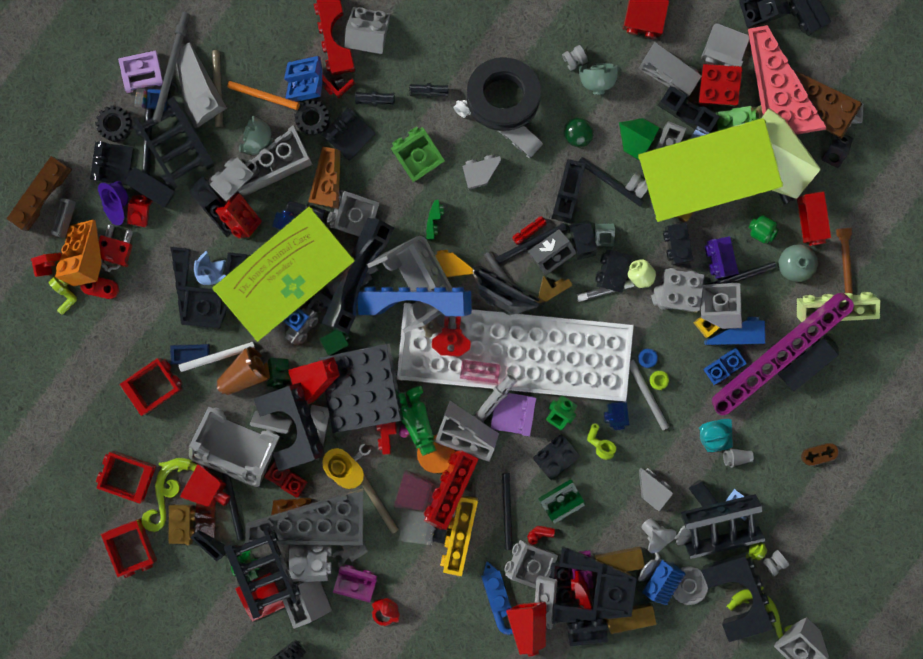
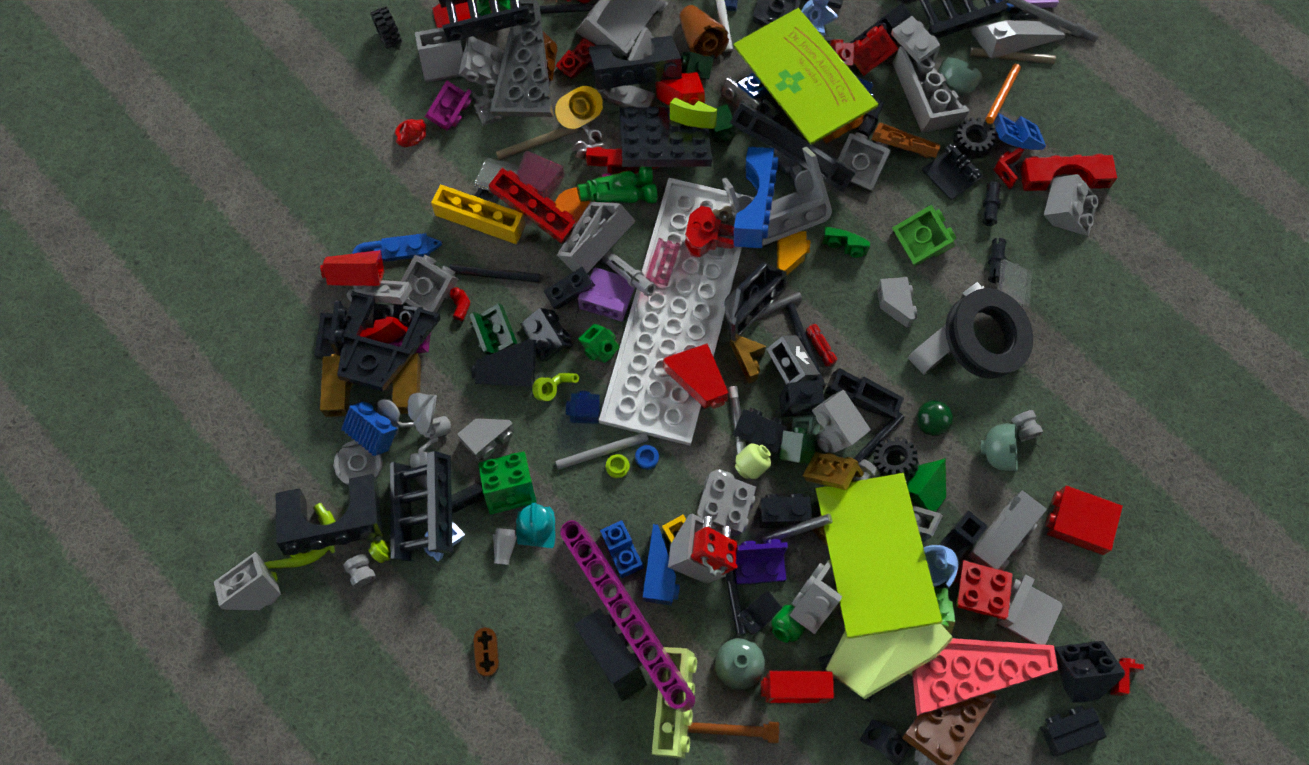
camera: 95 degrees right, 20 degrees down
(247, 244) = (843, 50): none -> red bracket
(342, 361) = (698, 116): none -> lime slope
(377, 456) = (582, 147): none -> light grey hand
(449, 74) = (1015, 282): none -> clear piece
(520, 444) = (569, 288): none -> black bracket
(580, 326) = (698, 375): none -> red slope
(593, 482) = (508, 367): none -> black slope
(606, 209) = (840, 423): none -> light grey brick
(616, 170) = (896, 448): none -> black tyre
(625, 239) = (797, 445): none -> dark green brick
(643, 211) = (832, 470): none -> pearl gold bracket
(686, 465) = (507, 482): none -> green bracket
(693, 232) = (798, 528): none -> flat silver bar
(711, 120) = (941, 564): none -> light blue piece
(727, 294) = (714, 549): none -> red piece
(754, 215) = (816, 601): none -> light grey bracket
(759, 254) = (759, 612): none -> black bracket

